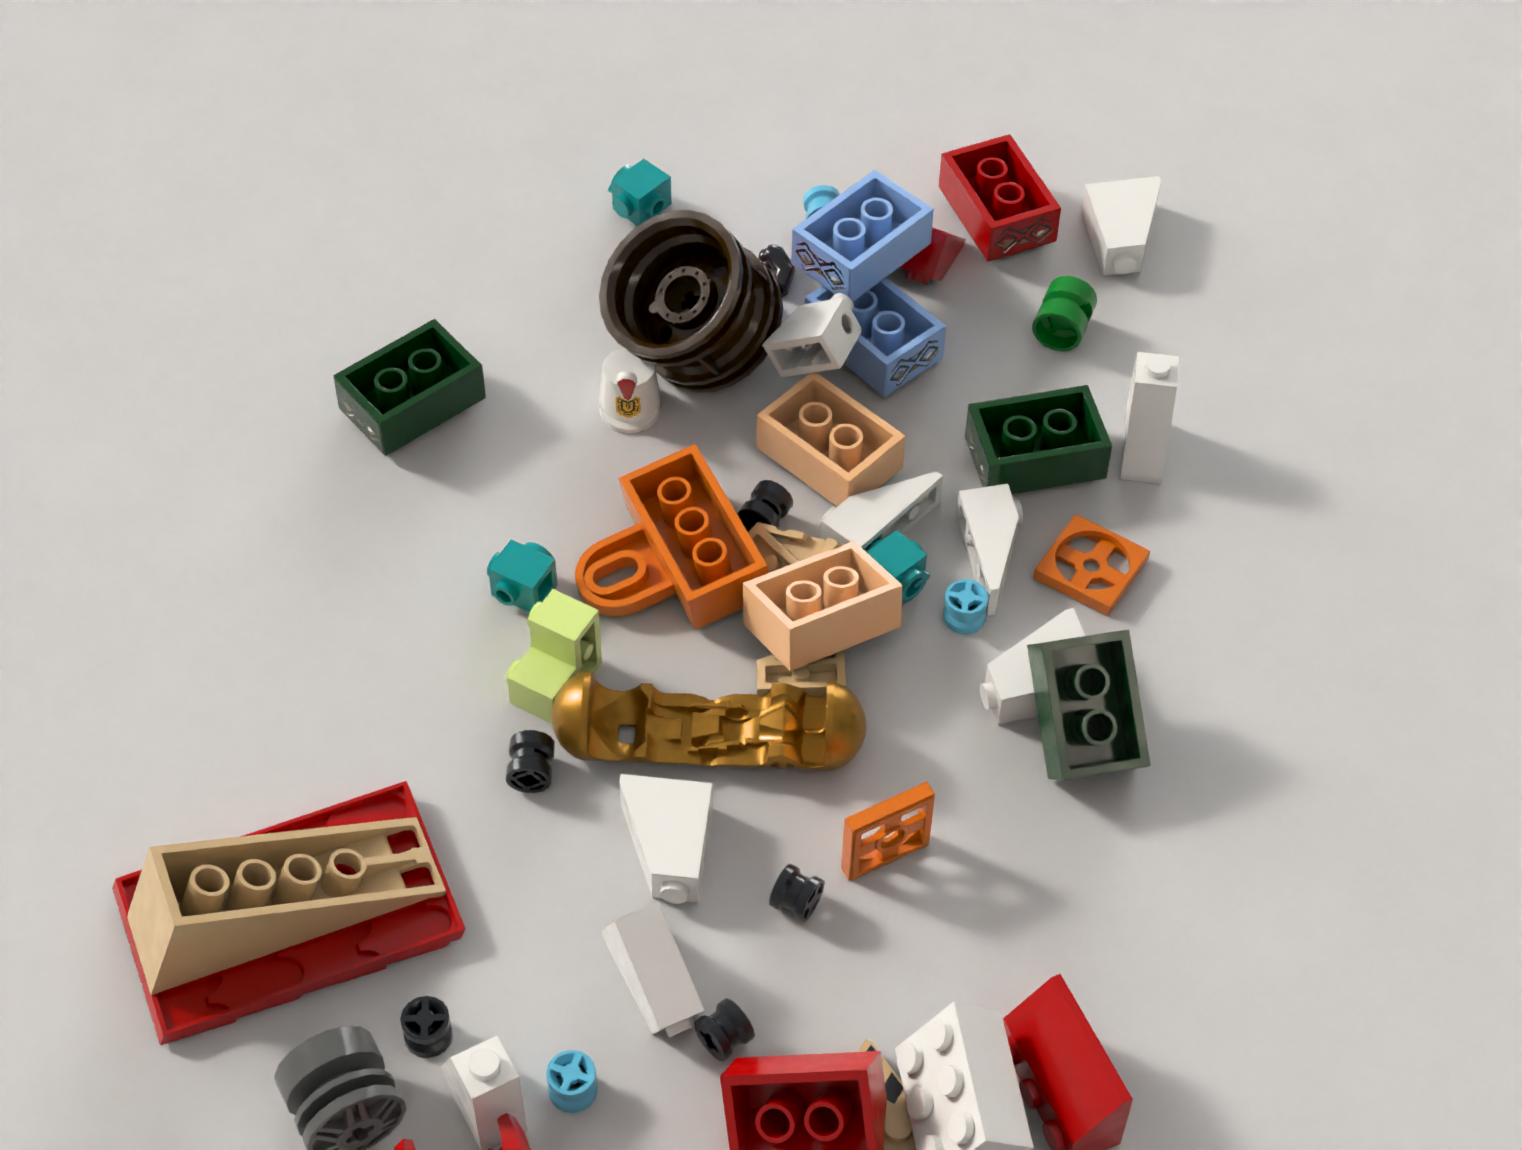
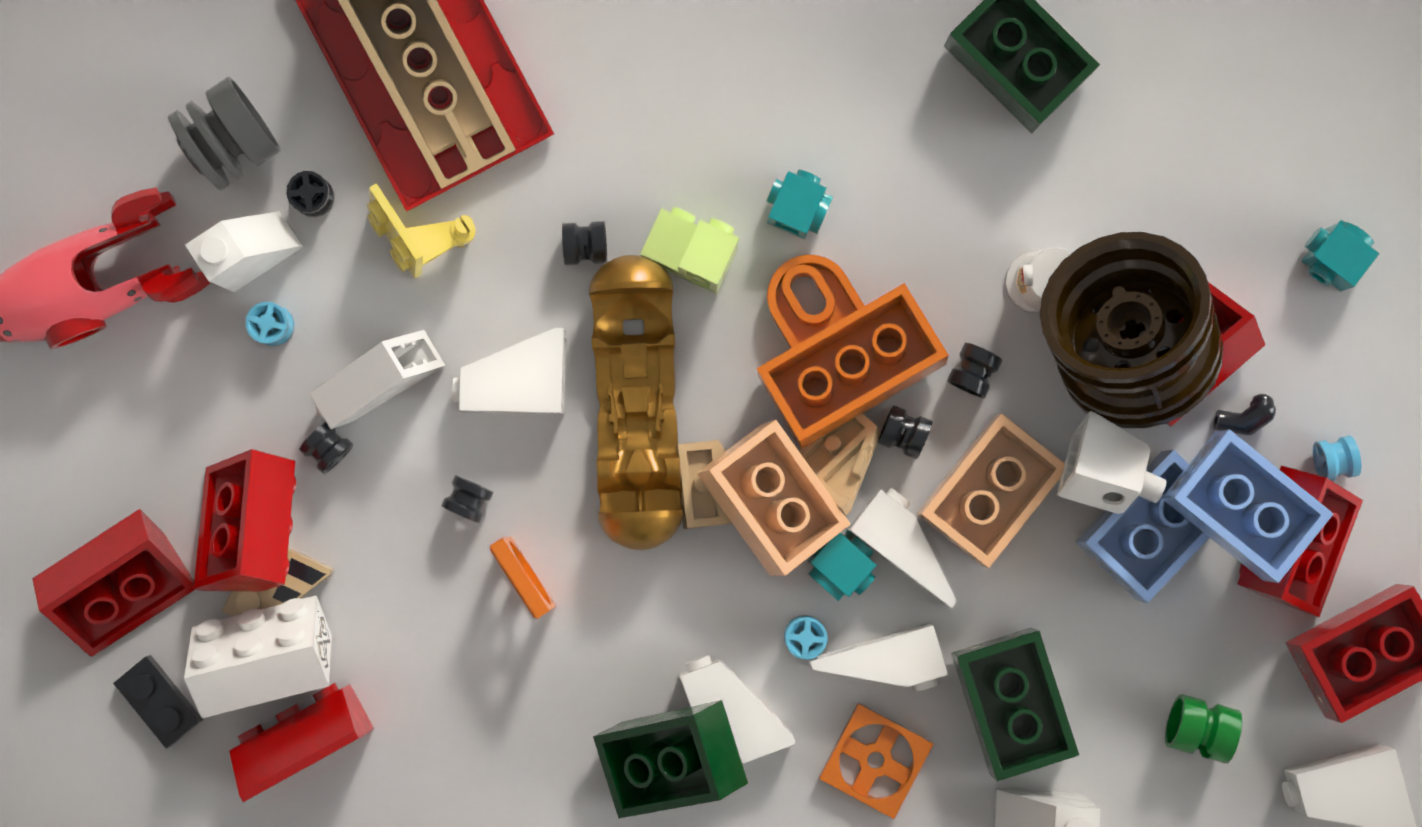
camera: 85 degrees right, 35 degrees up
(489, 920) = (417, 244): none -> light yellow plate
(717, 452) = (975, 368): none -> black wheel

